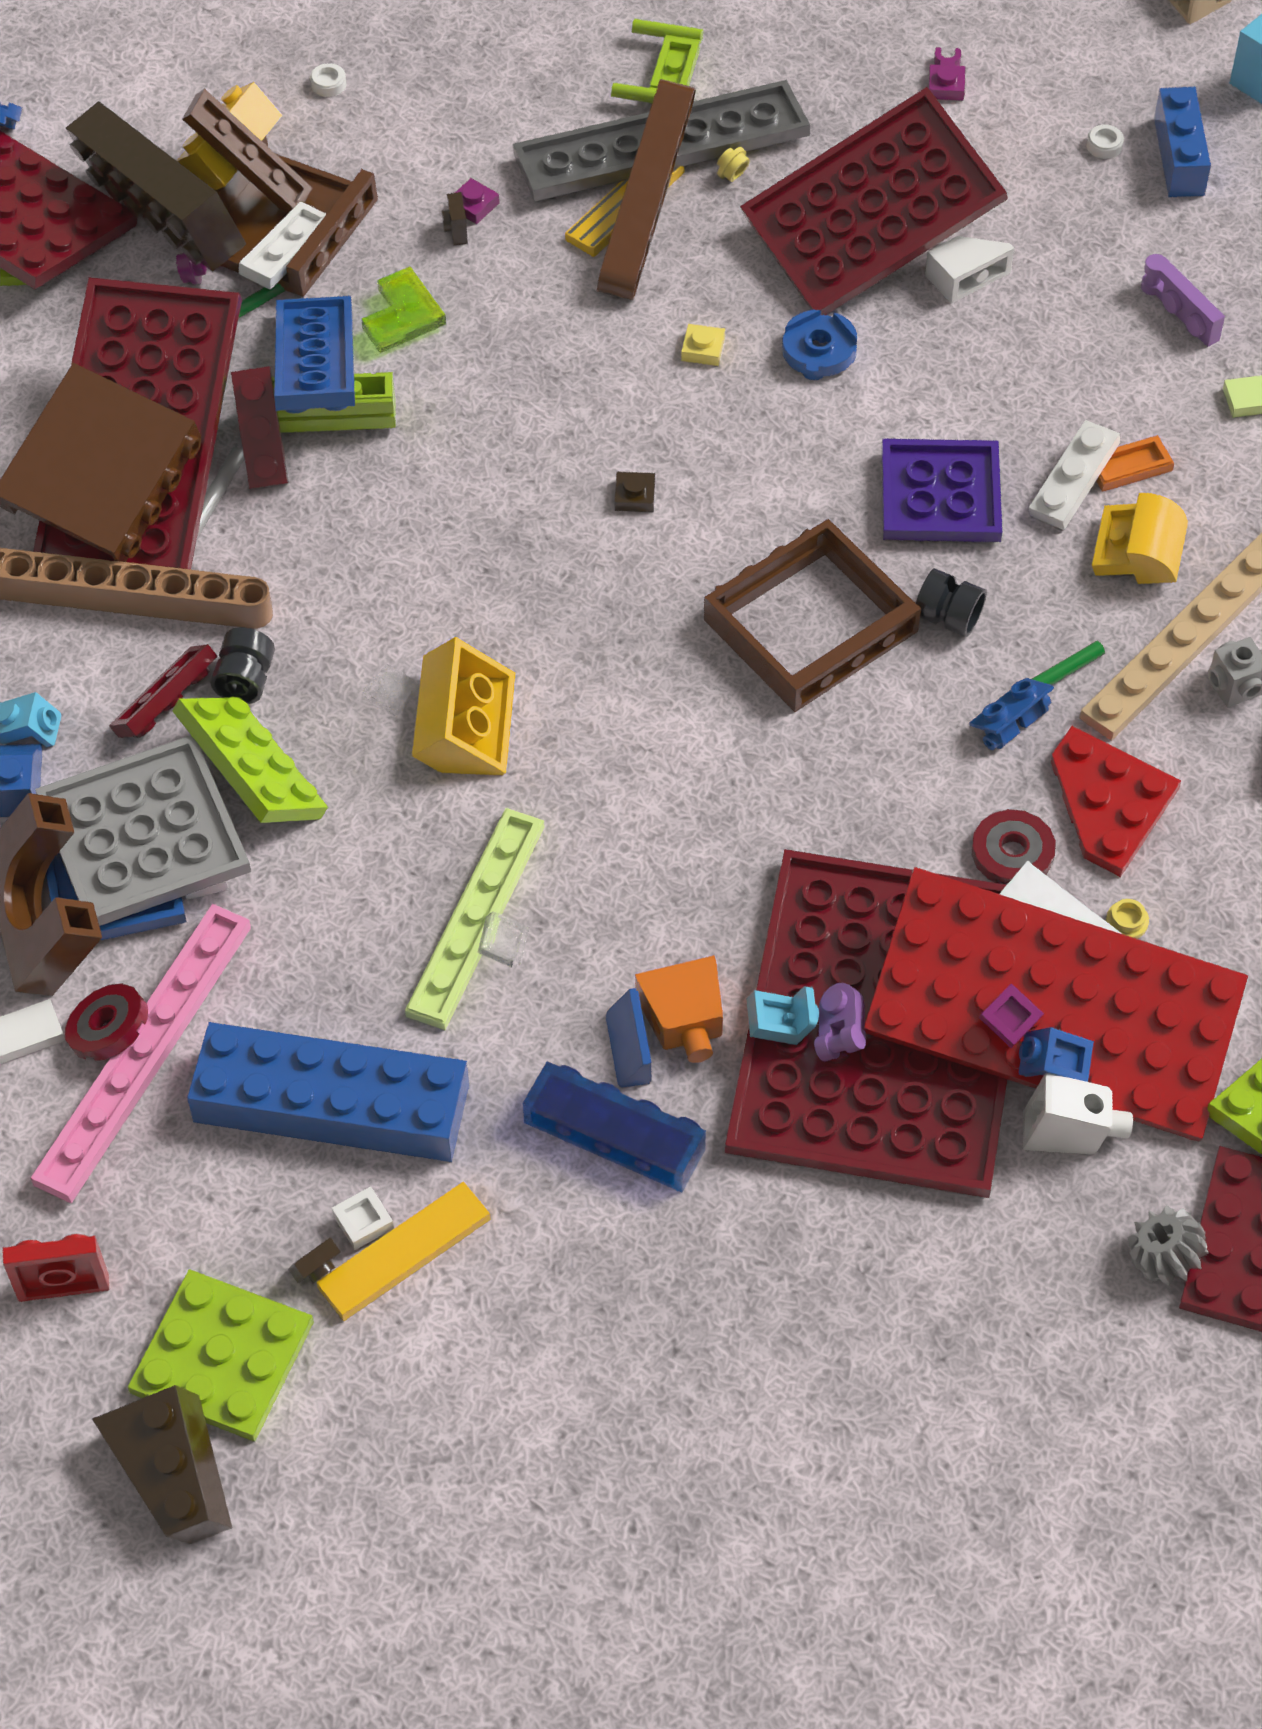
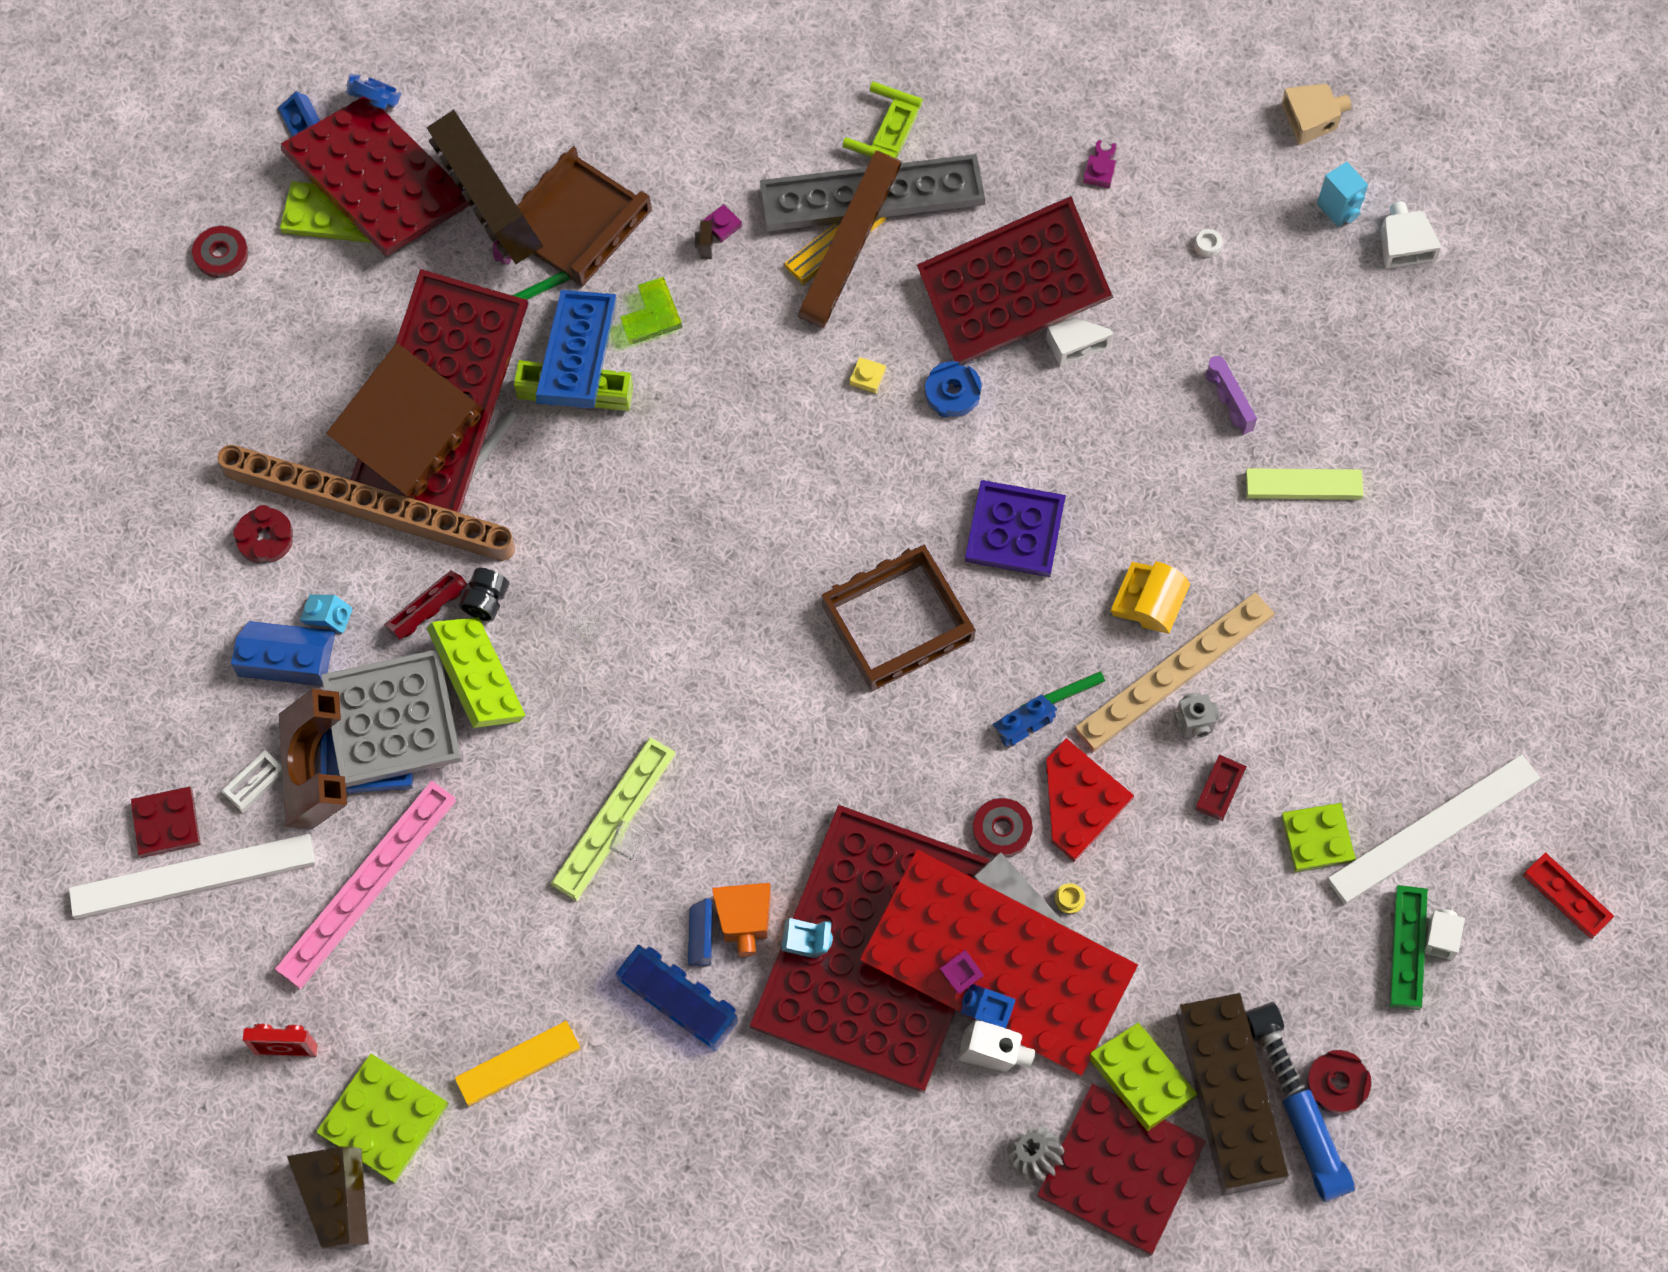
camera: 10 degrees right, 10 degrees up
(85, 1023) = (337, 848): dark red tile -> none
(246, 152) = (556, 169): plate -> none
(249, 107) = (544, 151): yellow slope -> none
(259, 427) = (527, 414): dark red plate -> none
(269, 259) = (567, 250): white plate -> none
(316, 1262) = (455, 1064): dark brown plate -> none
(328, 80) = (633, 98): white tile -> none
(329, 1091) = (487, 938): blue brick -> none
(362, 1218) = (493, 1035): white plate -> none
(463, 711) = (634, 656): yellow slope -> none
(635, 492) = (792, 492): dark brown plate -> none
(732, 164) = (921, 222): light yellow plate -> none
(840, 1022) = (847, 940): medium lavender plate -> none
(950, 602) = (997, 623): black wheel -> none
(1074, 474) = (1115, 531): white plate -> none
(1135, 463) = (1160, 526): orange tile -> none
(1182, 142) = (1264, 256): blue brick -> none

